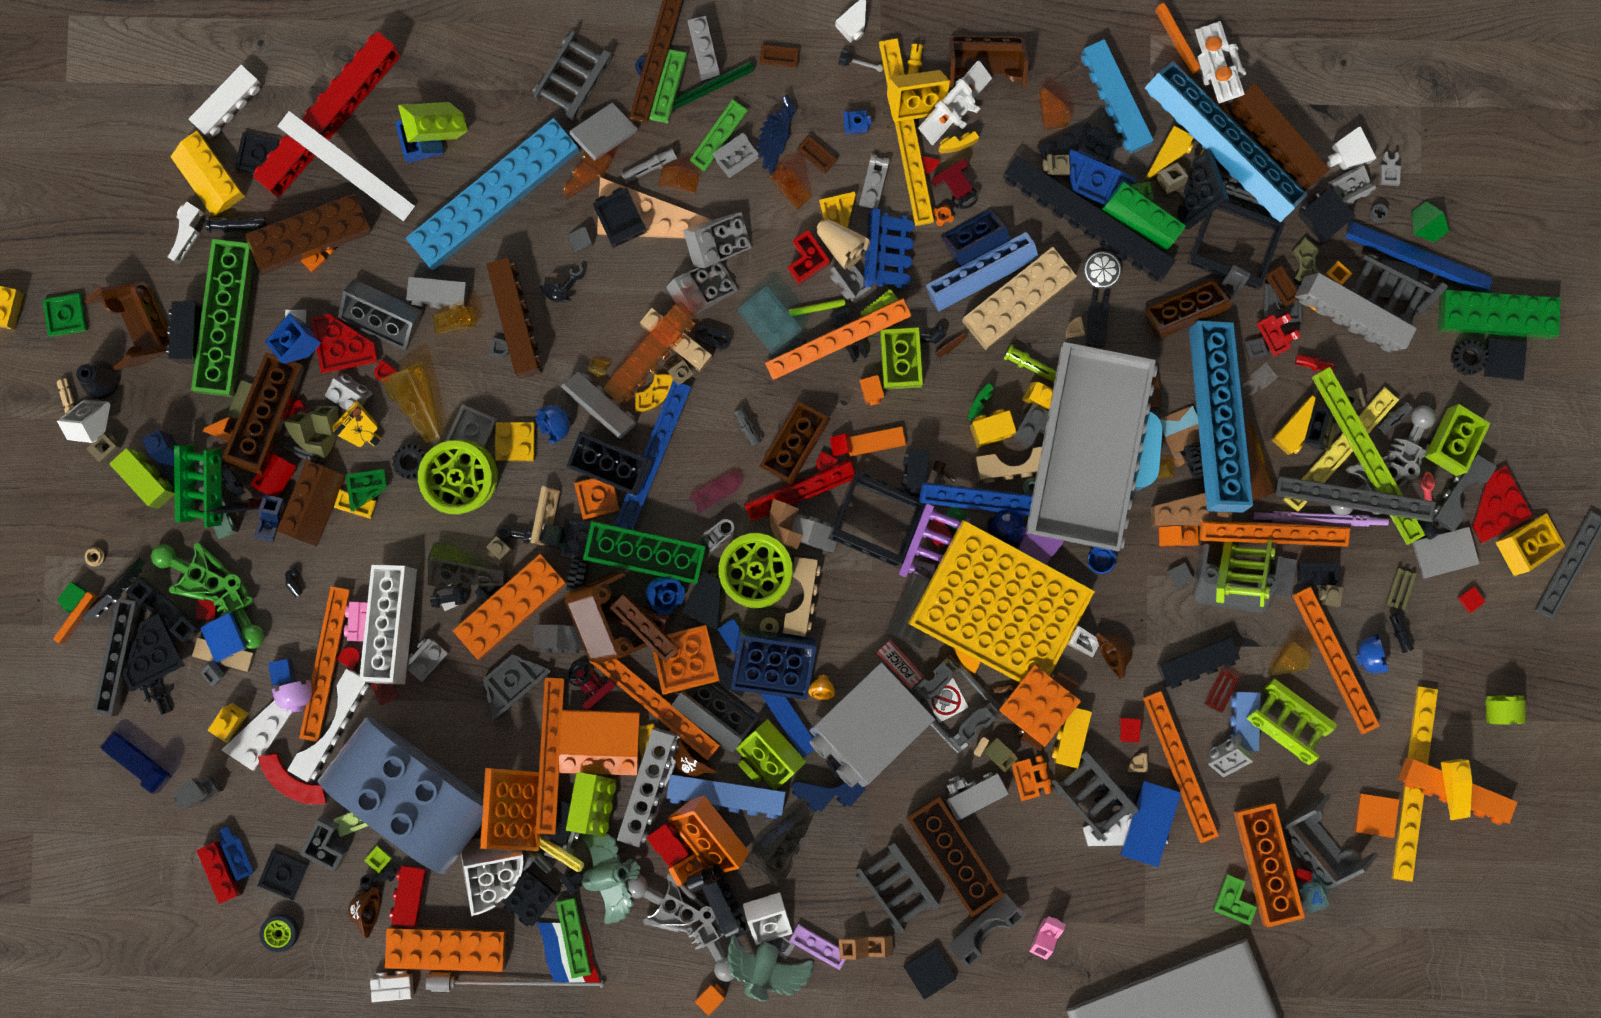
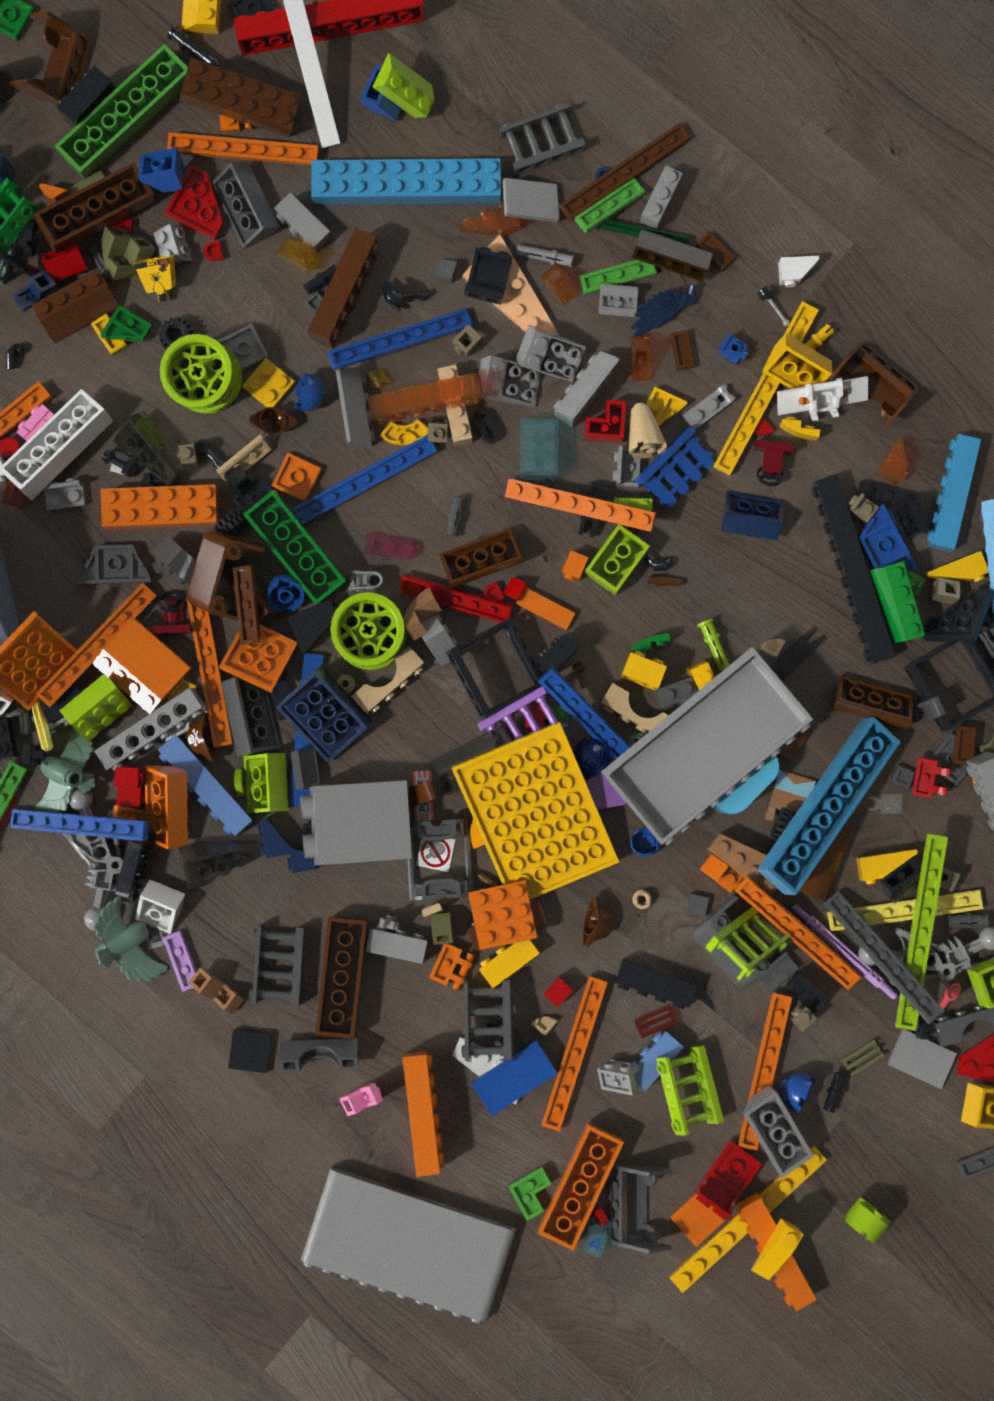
camera: 45 degrees right, 0 degrees up
(188, 219) = (150, 26): white slope -> none
(341, 272) = (243, 149): none -> orange plate
(414, 394) = (221, 285): clear yellow wedge -> none
(488, 325) = (320, 280): none -> black pin
(543, 468) = (271, 421): none -> reddish brown hat
(591, 323) = (399, 339): none -> blue tile
(609, 464) = (324, 459): black brick -> none
(640, 276) = (470, 335): none -> dark tan brick
(654, 906) = (79, 824): none -> blue tile
(710, 998) = (66, 931): orange brick -> none
(749, 86) = (672, 255): none -> dark brown brick
(767, 244) = (586, 388): none -> light grey slope
(794, 718) = (305, 769): none -> dark grey panel
(817, 307) = (584, 468): lime bar -> none
(822, 688) = (346, 764): light orange brick -> none
(900, 661) = (423, 793): none -> reddish brown slope
(943, 210) = (741, 471): orange plate -> none
(982, 271) = (736, 543): medium blue brick -> none
(1019, 298) = (747, 587): tan brick -> none
(1083, 641) = (579, 894): white slope -> none
(1102, 270) = (831, 618): dish -> none
(1107, 913) = (422, 1113): none -> orange brick
(1139, 601) = (646, 904): none -> tan plate
(1166, 468) = (753, 812): clear yellow slope -> none
(1291, 660) = (730, 1042): clear yellow slope -> none
(1313, 362) = (939, 825): red pin -> none
(1375, 767) = (727, 1180): none -> red bracket
(1383, 698) = (776, 1131): none -> light grey slope
(1471, 599) = (911, 1112): red tile -> none

